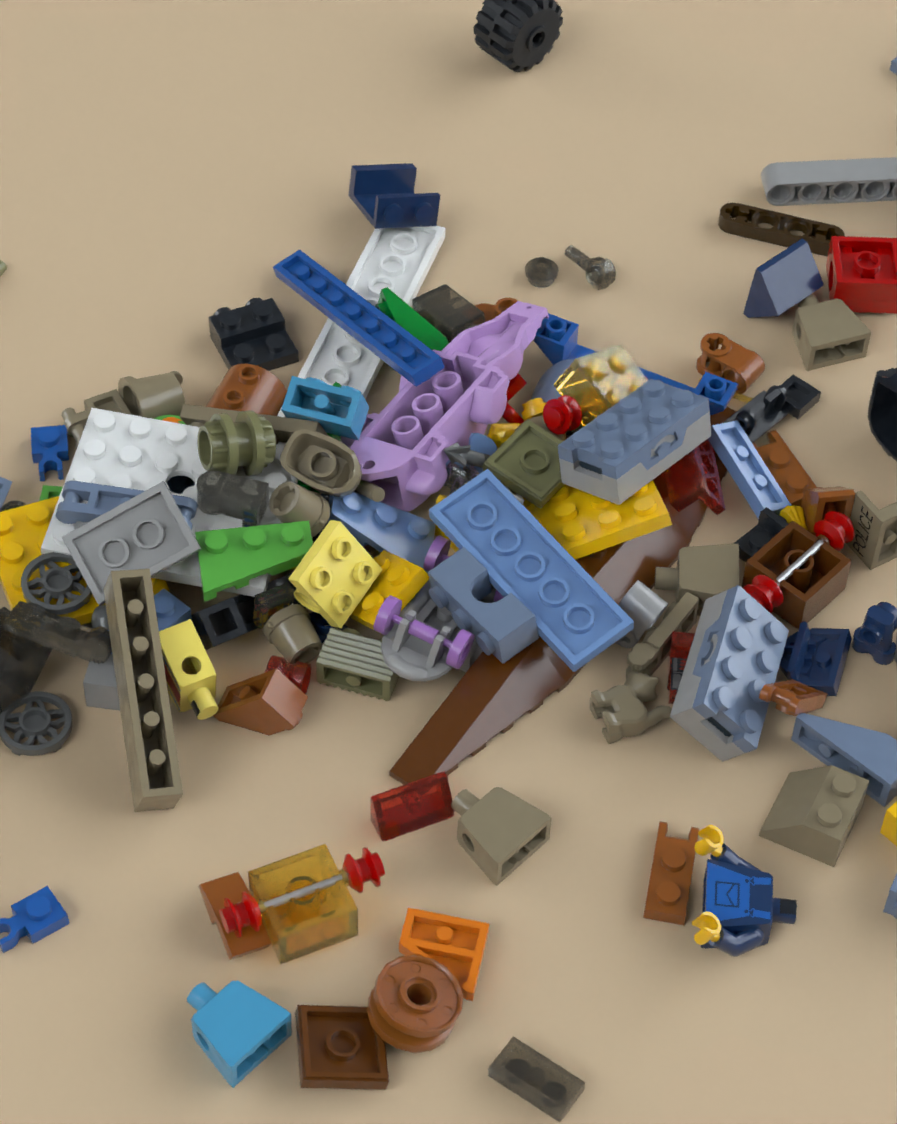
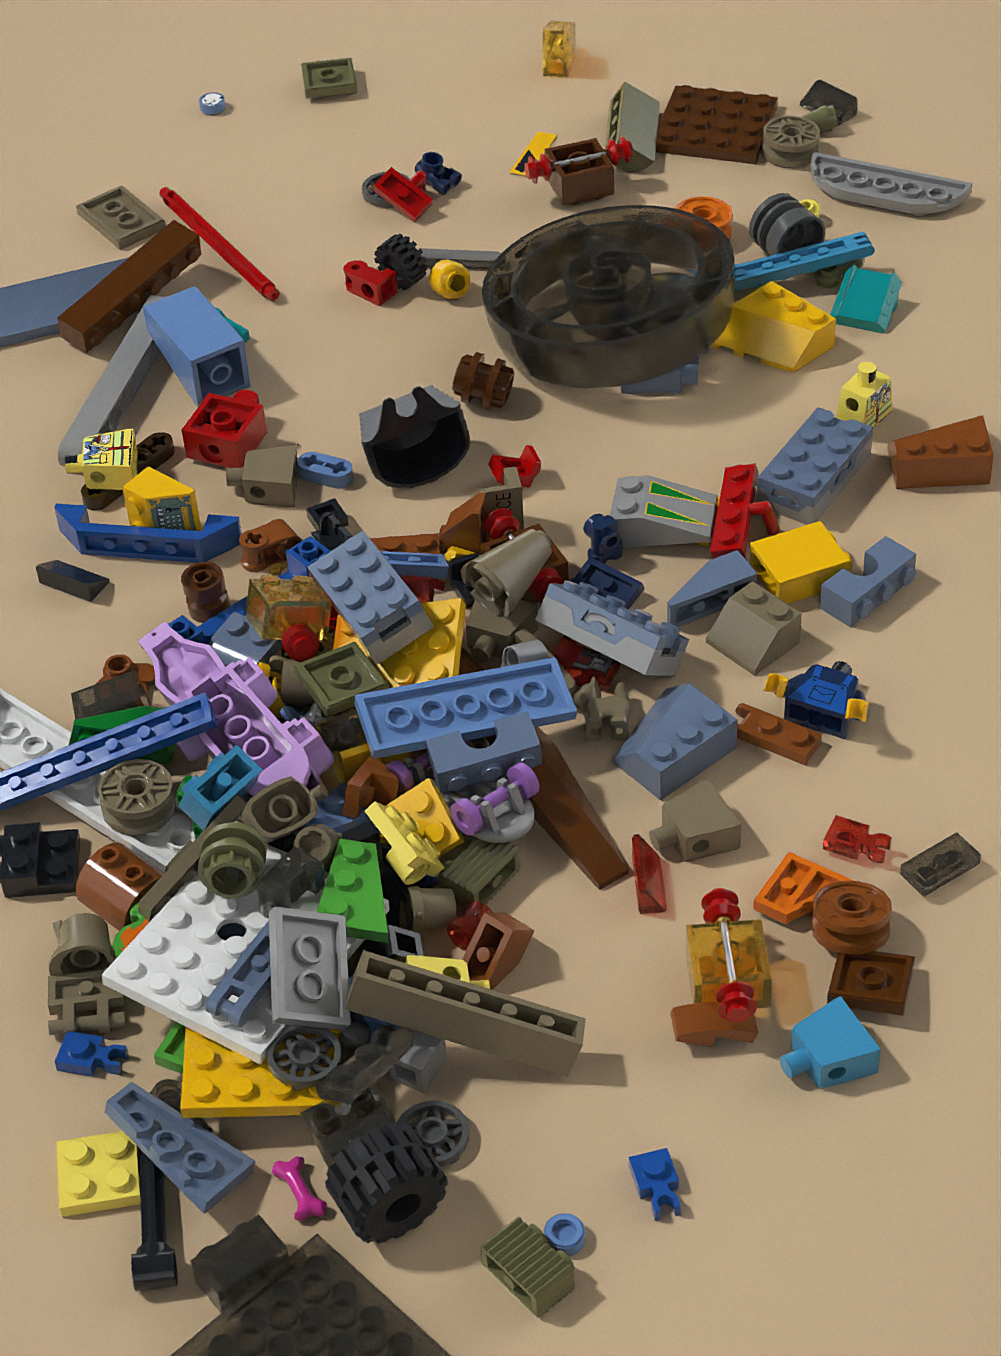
camera: 65 degrees left, 5 degrees down
(270, 602) = (401, 904): clear smoke tile -> none
(336, 359) = (137, 797): none -> dark tan wheel
(405, 528) = (369, 784): none -> dark orange slope
(538, 984) = (852, 838): none -> clear red plate
(541, 272) = (80, 635): clear smoke plate -> none
(599, 270) = (108, 595): clear smoke plate -> none
(610, 783) = (677, 740): none -> sand blue wedge
(614, 238) = (71, 579): none -> black slope
(633, 329) = (204, 590): none -> reddish brown wheel
(702, 317) = (217, 537): none -> blue slope
(718, 260) = (160, 502): none -> yellow slope
(742, 545) = (507, 571): none -> dark tan cone
(768, 203) = (106, 460): none -> light yellow torso
(783, 282) = (210, 479): slope -> none
(793, 697) = (656, 599): dark orange hinge -> none
(861, 374) = (325, 470): none -> medium blue beam

